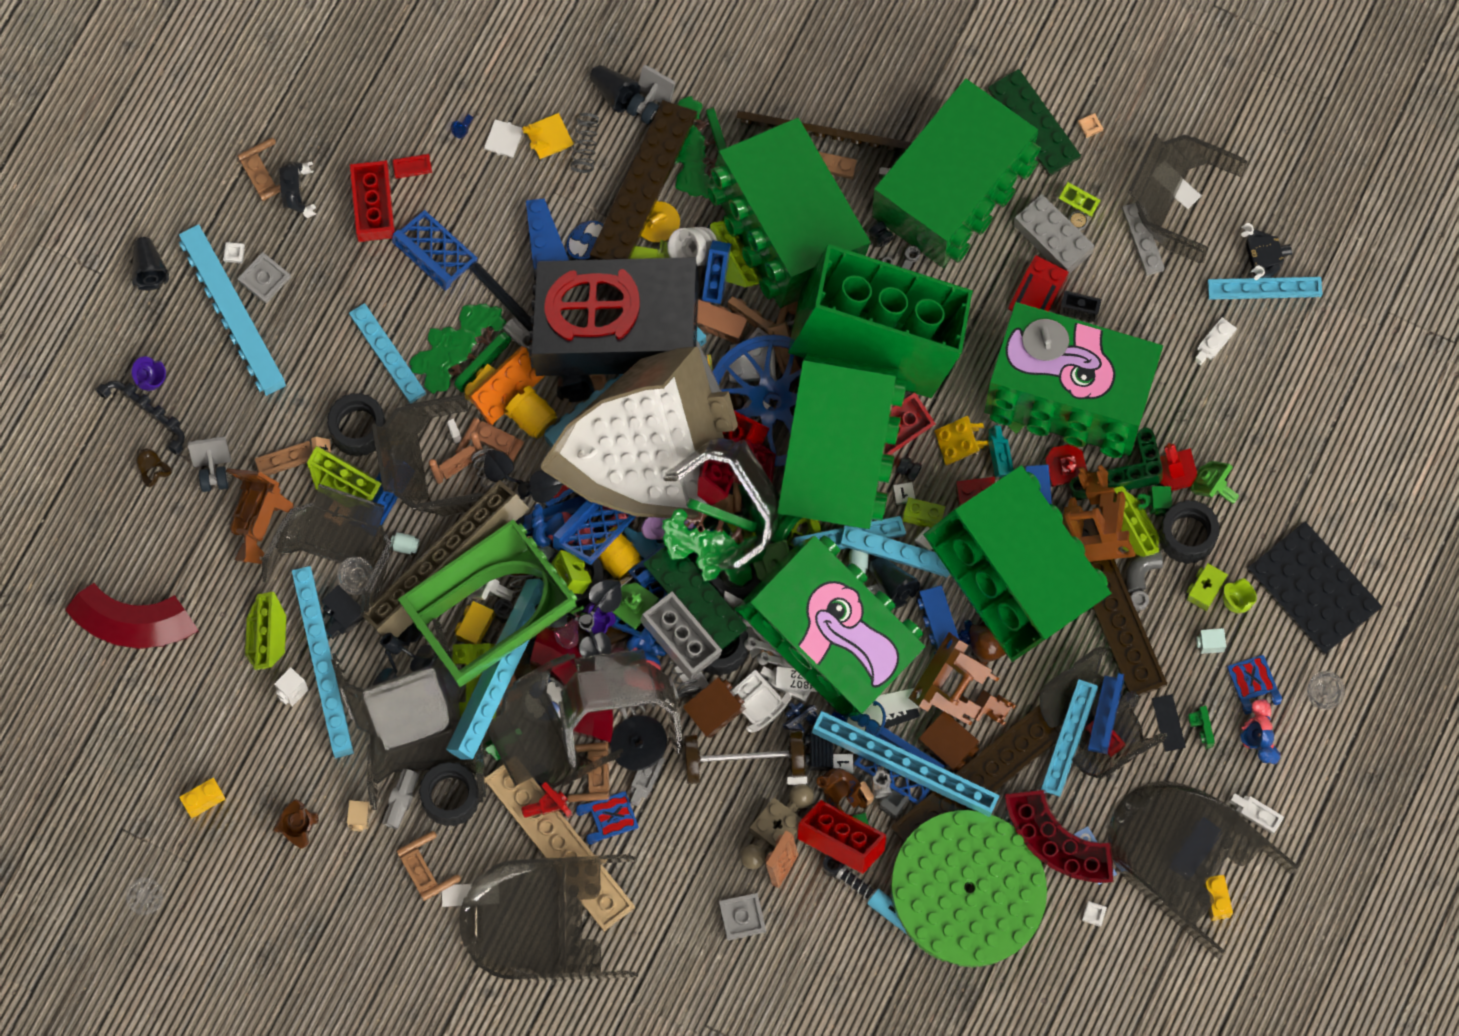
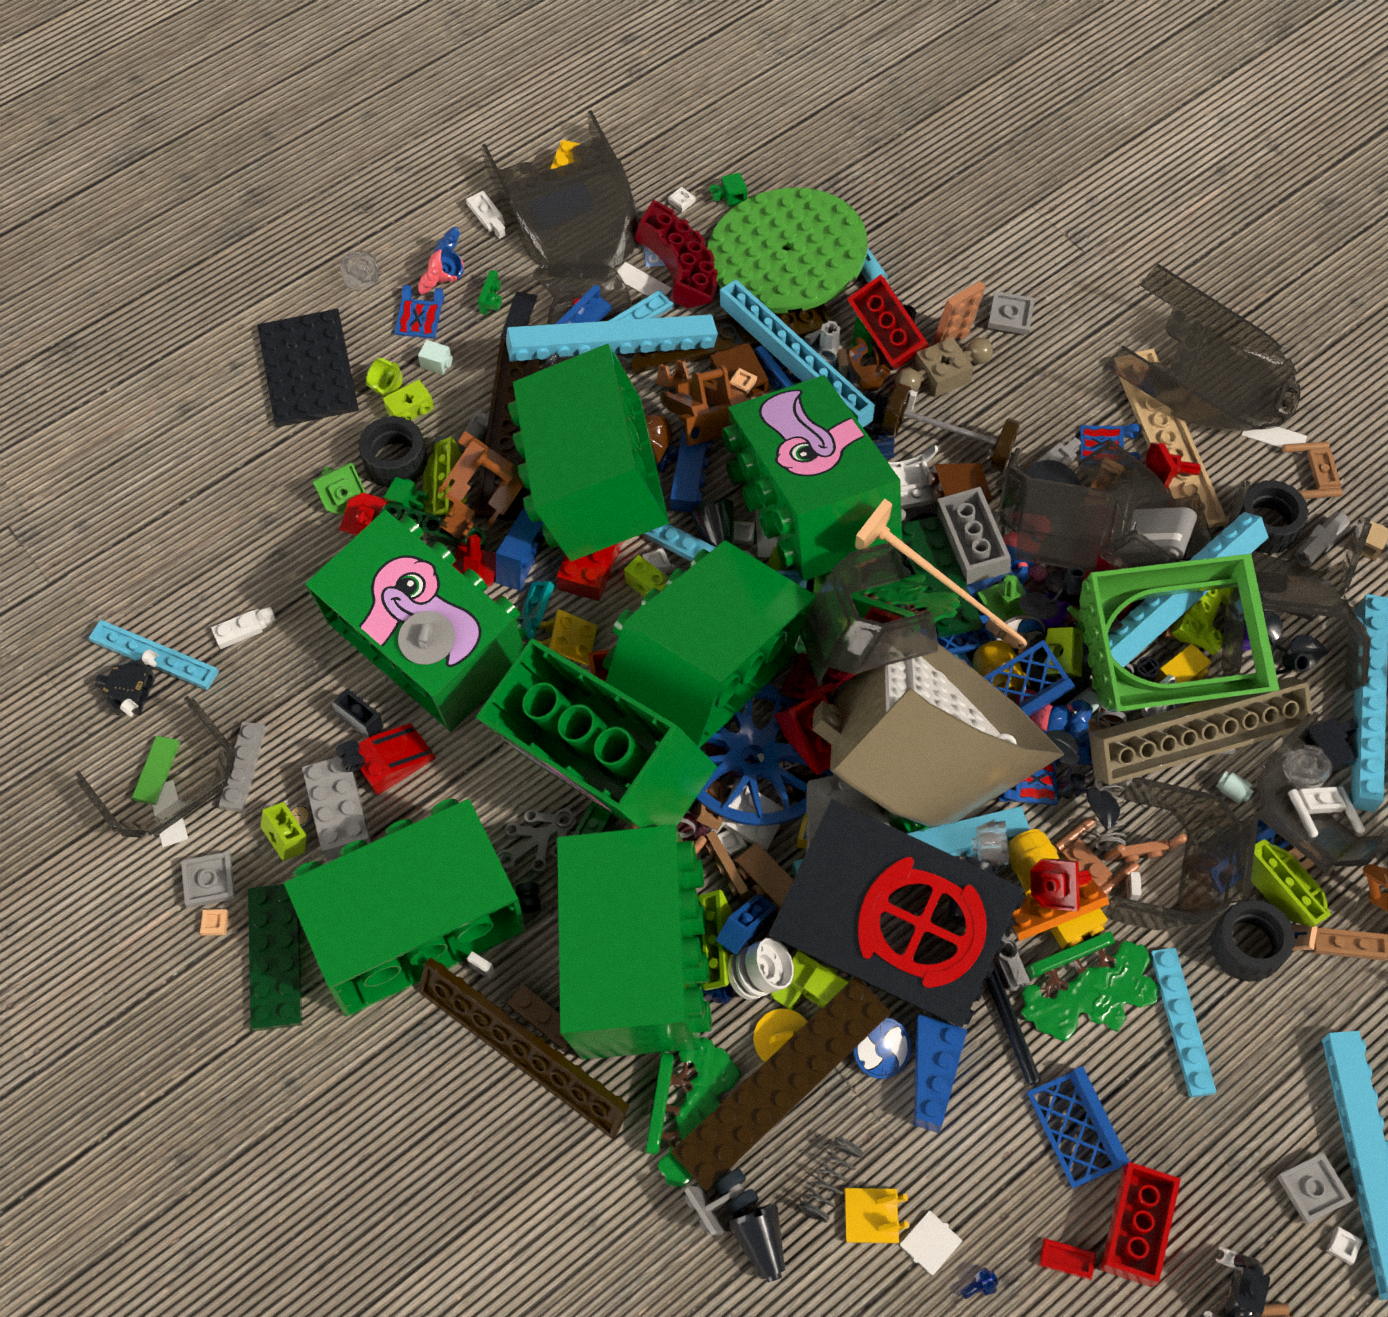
camera: 155 degrees left, 10 degrees down
(329, 564) = (1323, 801): none -> white plate
(507, 385) = (1057, 883): none -> red piece
(534, 726) = (1166, 527): none -> light grey door
(567, 401) = (992, 843): none -> clear cone
(631, 565) = (876, 528): none -> light nougat piece
(938, 723) = (743, 381): none -> light nougat tile
(1052, 940) = (732, 189): none -> green brick
(1059, 260) = (350, 756): none -> black wheel
(1065, 702) = (622, 335): none -> medium azure brick
(1082, 808) = (641, 281): none -> white sticker
(1112, 148) = (208, 879): none -> light grey plate
(1203, 207) = (156, 770): none -> bright green tile

